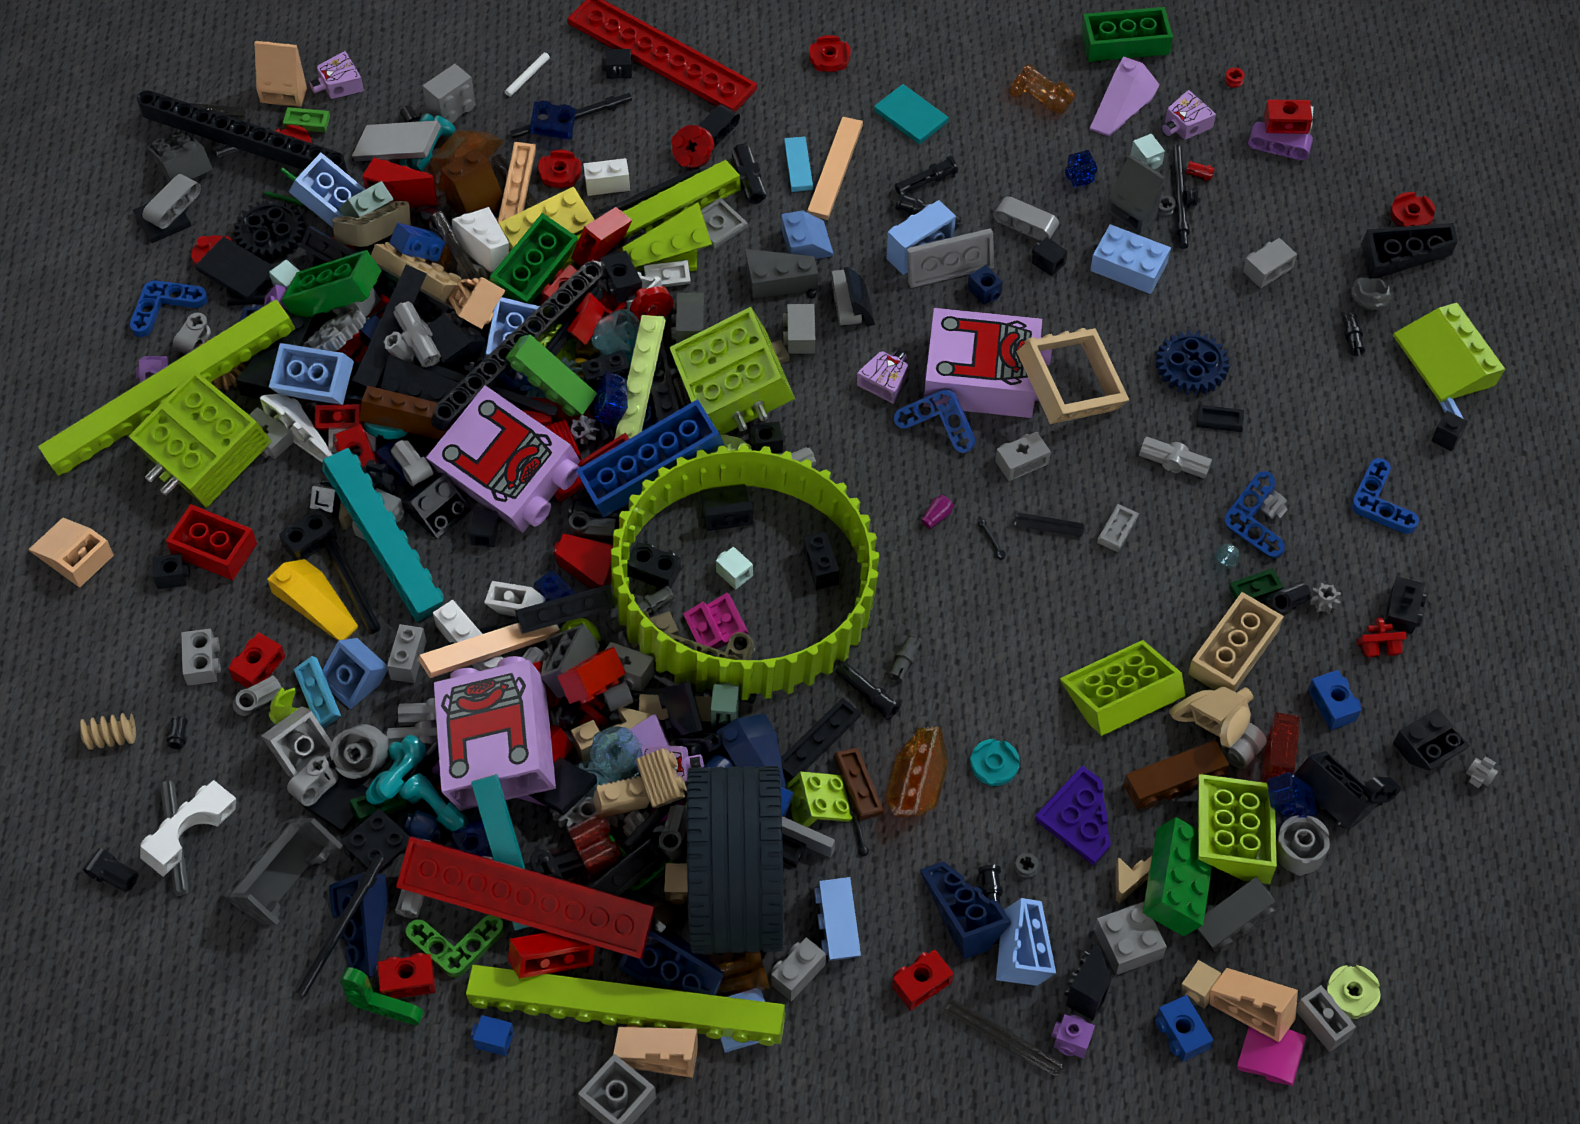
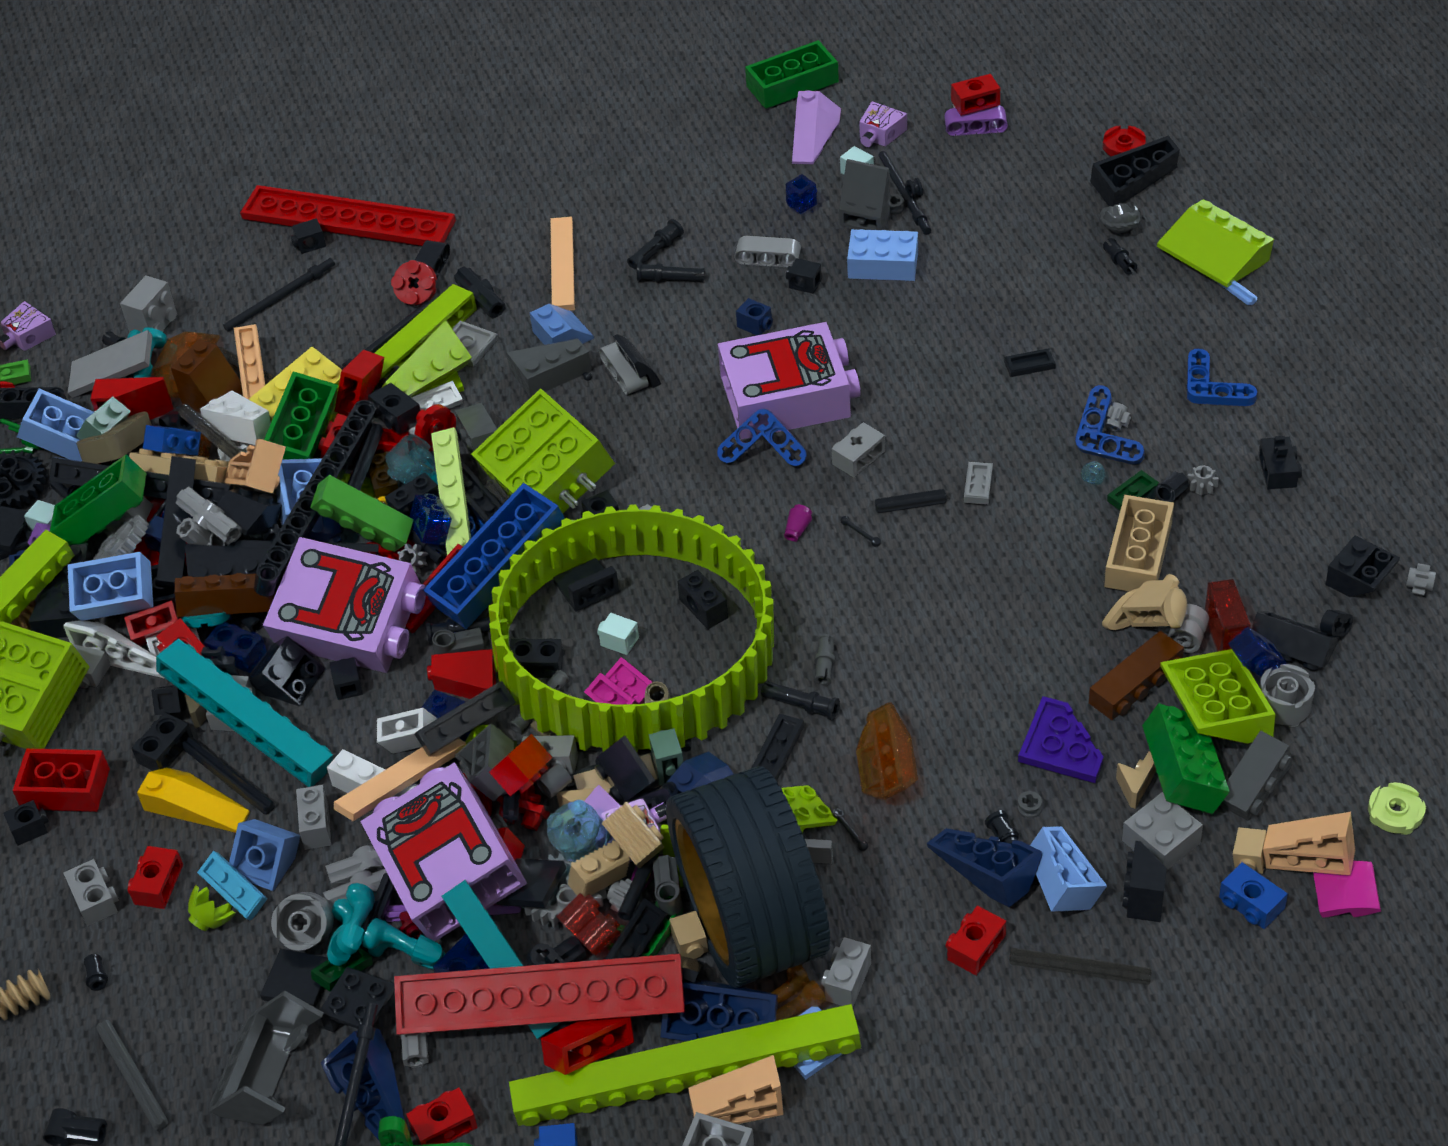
camera: 15 degrees left, 10 degrees down
(209, 806) = (158, 1030): white arch -> none
(258, 695) = (169, 908): light grey piece -> none
(297, 741) = (234, 934): light grey brick -> none
(312, 783) = (263, 968): light grey piece -> none
(413, 466) = (251, 641): light grey piece -> none
(422, 826) = (397, 966): dark blue head -> none
(453, 953) = (478, 1082): bright green beam -> none
(527, 74) = (216, 277): white bar -> none
(552, 125) = (264, 306): clear blue brick -> none
(560, 179) = (282, 351): red plate -> none
(583, 738) = (535, 837): tan brick -> none
(589, 314) = (376, 455): red slope -> none
(606, 177) = (339, 334): white brick -> none
(798, 164) = (524, 270): medium azure tile -> none
(801, 328) = (591, 406): light grey brick -> none
(829, 63) = (523, 173): red plate -> none
(837, 919) = (866, 910): light blue wedge -> none
(858, 783) = (829, 786): reddish brown tile -> none
(884, 375) = (691, 422): lavender torso -> none
(911, 114) = (615, 198): teal tile -> none
(927, 226) = (674, 293): light blue brick -> none
(950, 258) = (710, 302): light grey tile -> none
(1001, 765) = (952, 730): teal tile -> none
(1046, 389) = (860, 378): tan window -> none
(1054, 100) = (747, 144): clear orange piece -> none
(1072, 1035) = (1149, 938): medium lavender brick -> none
(1124, 687) = (1050, 616): lime slope -> none
(1175, 457) = (1004, 406): light grey piece -> none
(1192, 362) = (982, 323): dark blue gear -> none
(1200, 170) = (913, 165): red pin -> none
(1234, 83) = (908, 83): red bush -> none
(1269, 262) = (1014, 219): light grey brick -> none
(1325, 1018) = (1384, 838): light grey brick -> none
(1334, 712) = (1254, 562): blue brick -> none
(1392, 640) = (1269, 494): red hips -> none
(1449, 431) = (1247, 306): black brick -> none

